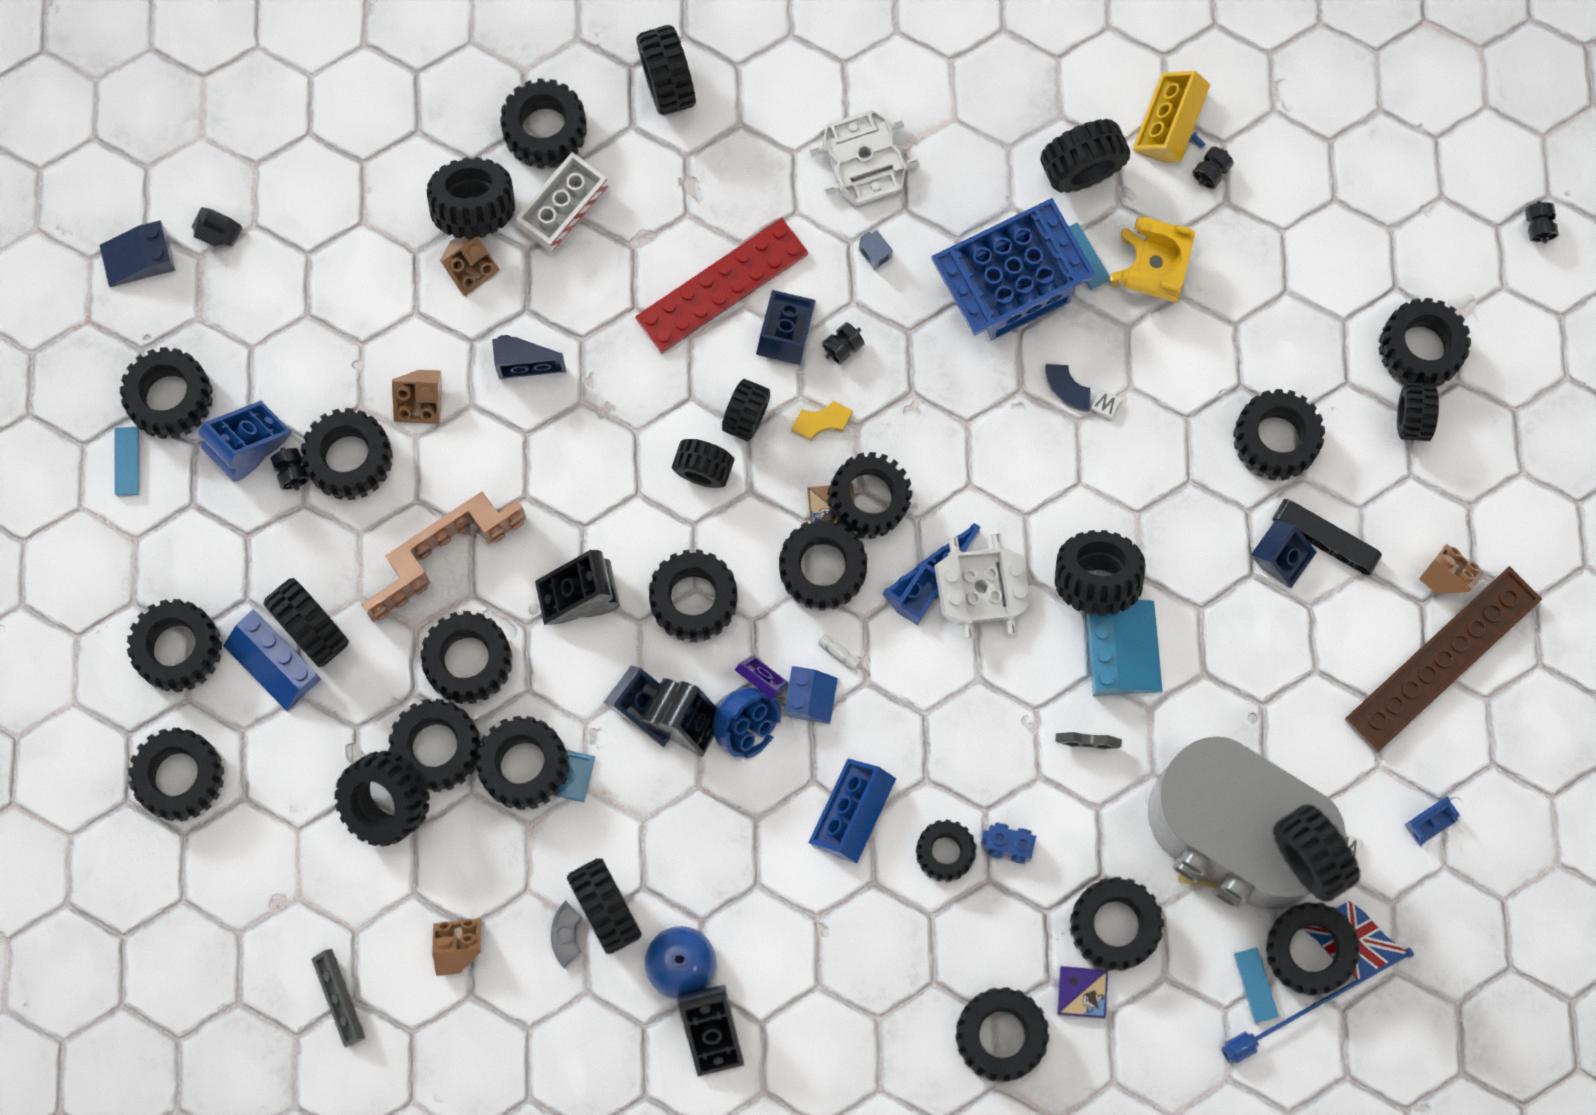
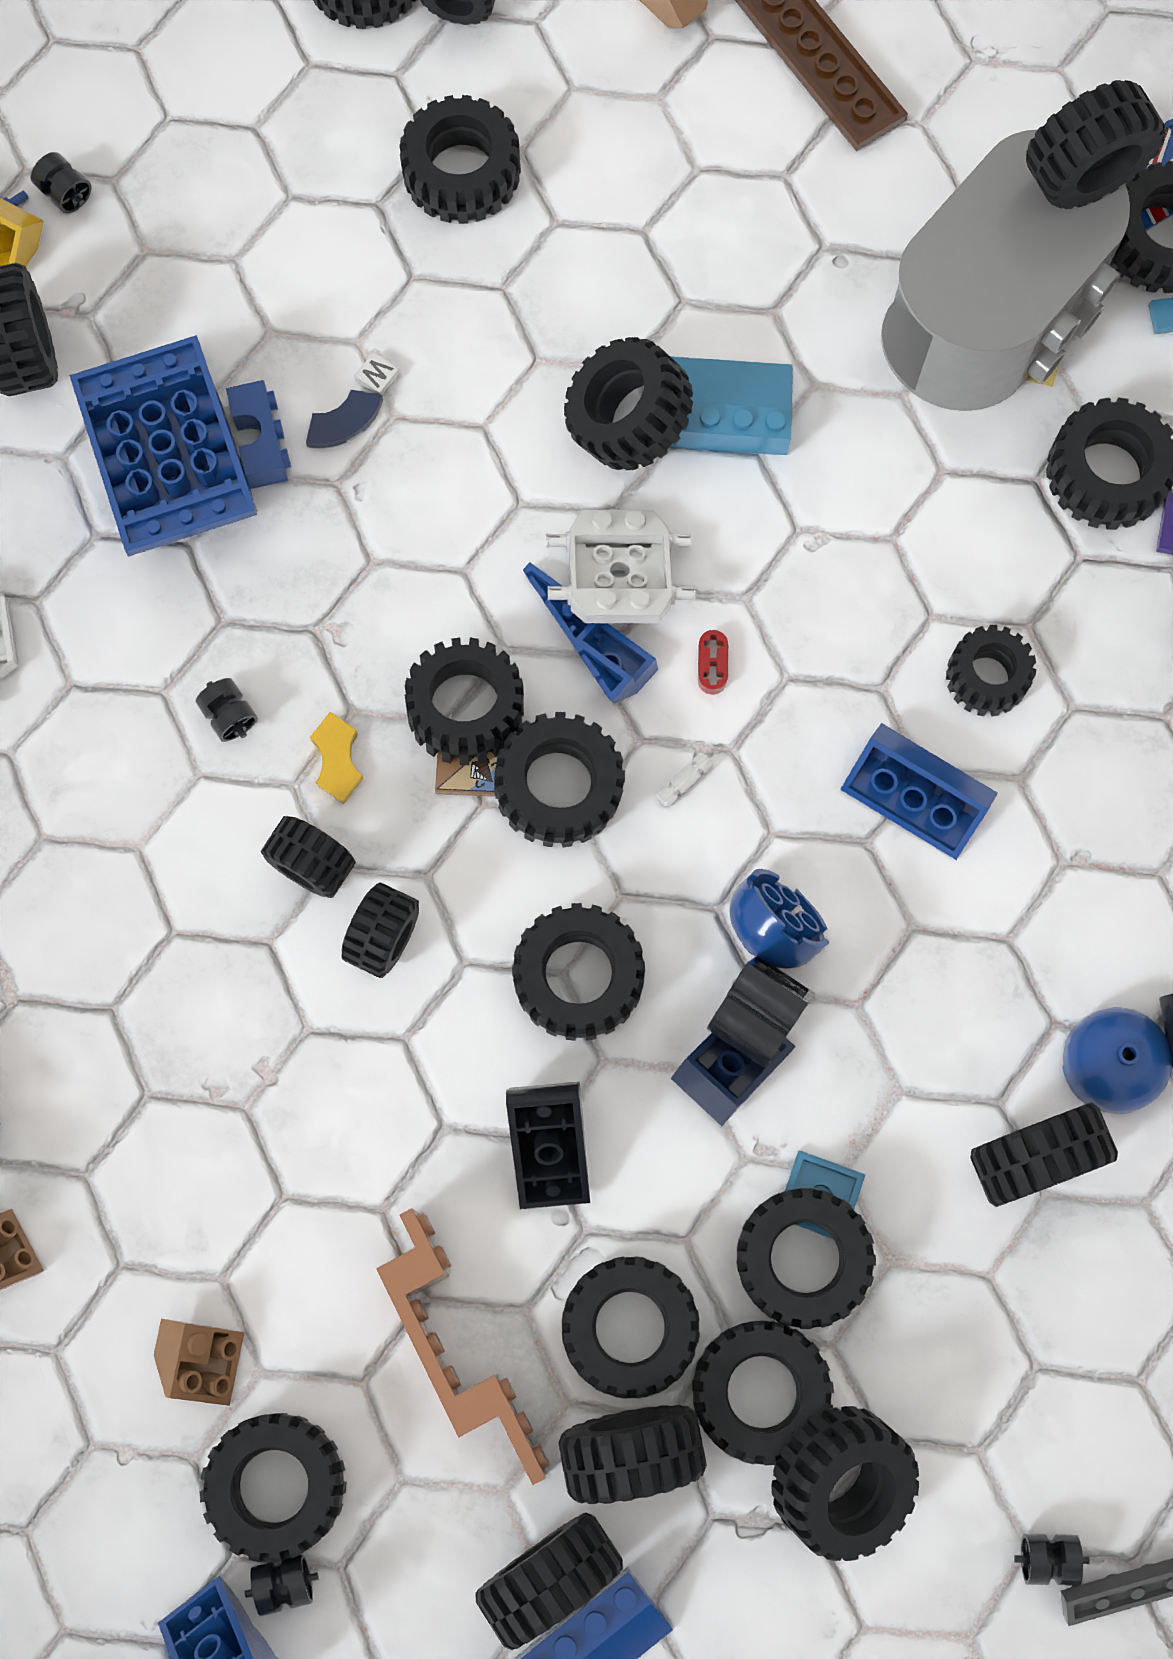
camera: 80 degrees left, 0 degrees up
(350, 941) = (1051, 1559): none -> black wheel
(386, 663) = (632, 1454): none -> black tyre
(455, 945) = (1068, 1391): medium nougat slope -> none
(523, 358) = (164, 1187): dark blue slope -> none
(563, 934) = (1060, 1227): tile -> none
(721, 285) = (102, 876): red plate -> none
(762, 676) = (714, 887): dark purple tile -> none
(785, 327) = (187, 788): dark blue slope -> none
(810, 695) = (745, 828): blue slope -> none
(875, 249) = (90, 647): sand blue brick -> none
(926, 655) = (705, 662): none -> red beam
(1002, 841) = (982, 596): blue brick -> none
(1029, 340) = (253, 409): none -> blue arch
(1076, 739) = (855, 463): dark grey tile -> none
(1163, 240) = (180, 242): yellow piece -> none
(1284, 552) = (621, 184): dark blue slope -> none
(1329, 537) = (608, 129): black beam -> none
(1432, 821) = (1000, 70): blue hinge -> none

